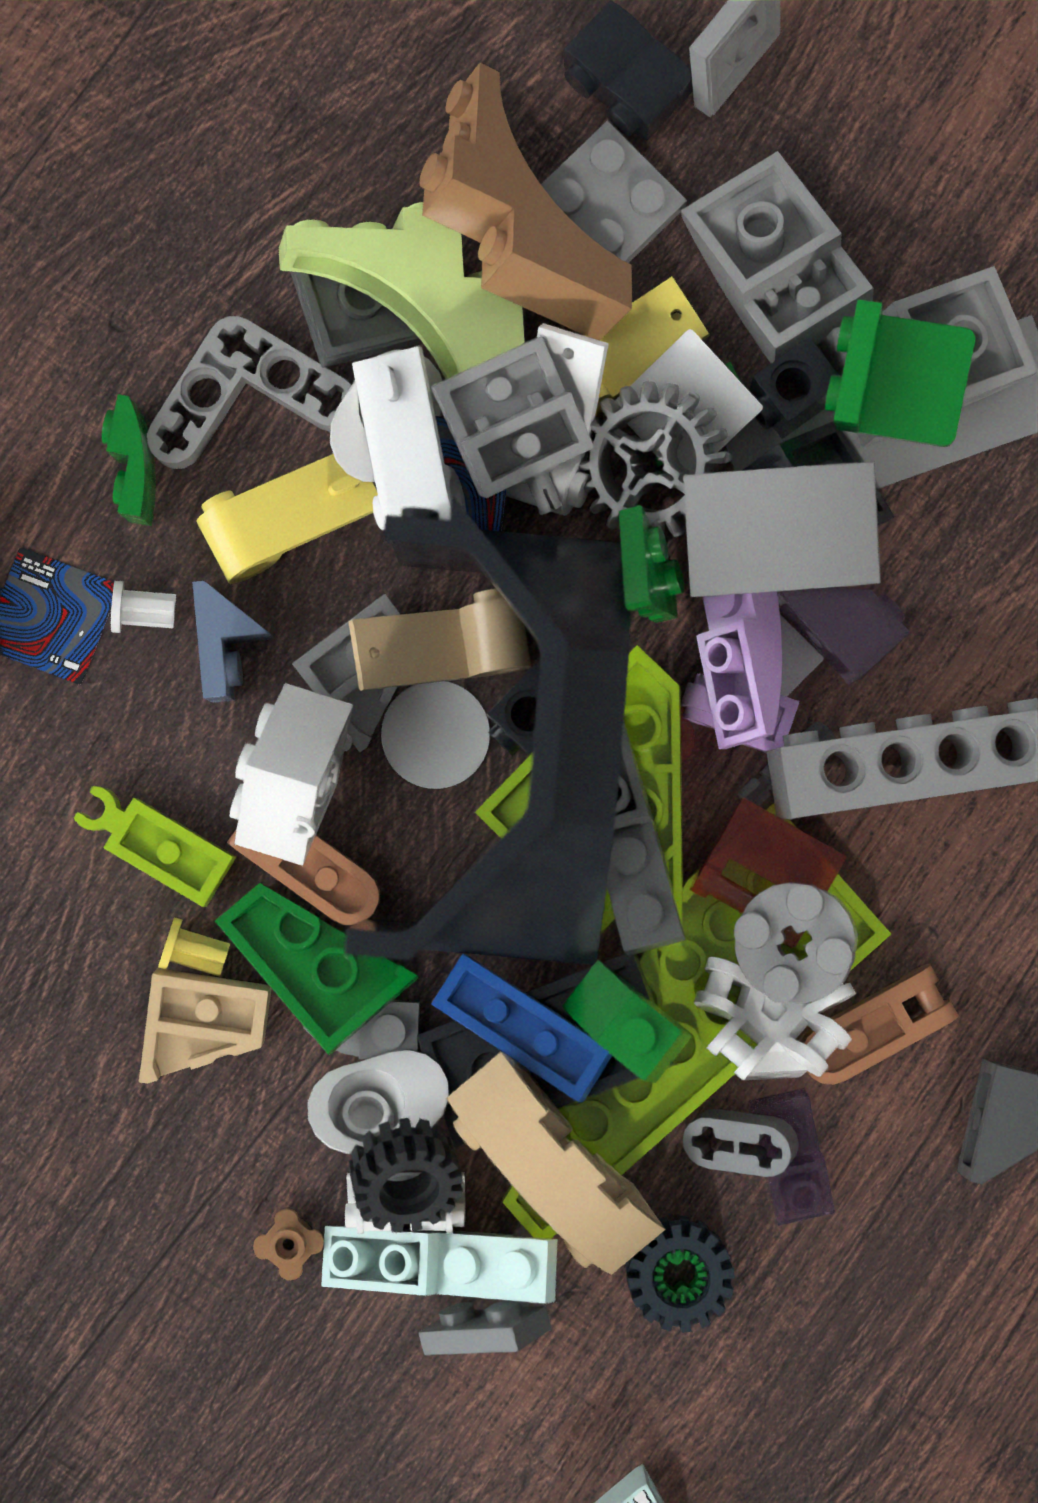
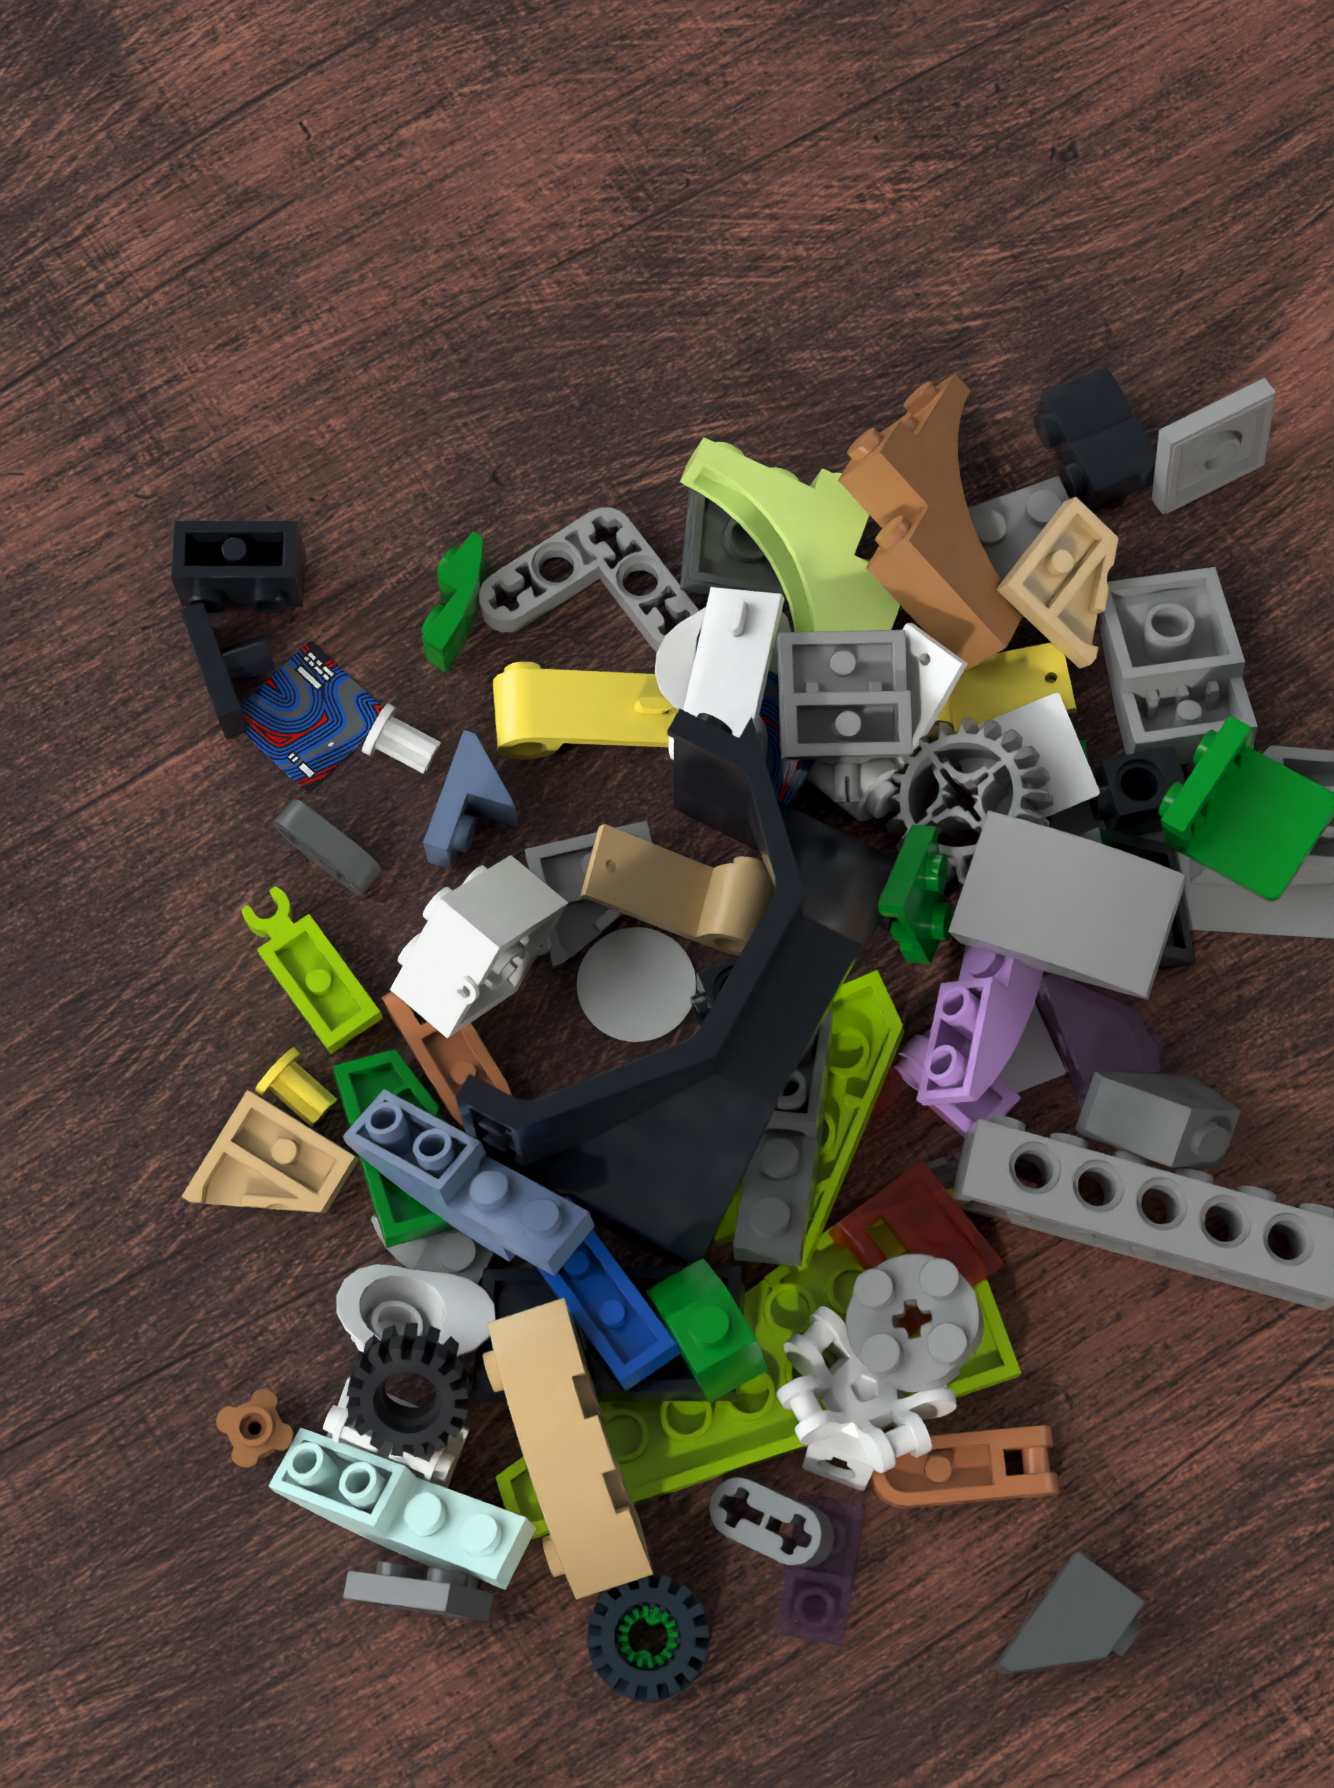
camera: 25 degrees right, 15 degrees down
(121, 730) = (327, 847): none -> dark grey beam
(377, 987) = (465, 1186): none -> sand blue slope
(654, 220) = (1064, 580): none -> tan wing
(926, 675) = (1159, 1118): none -> dark grey slope

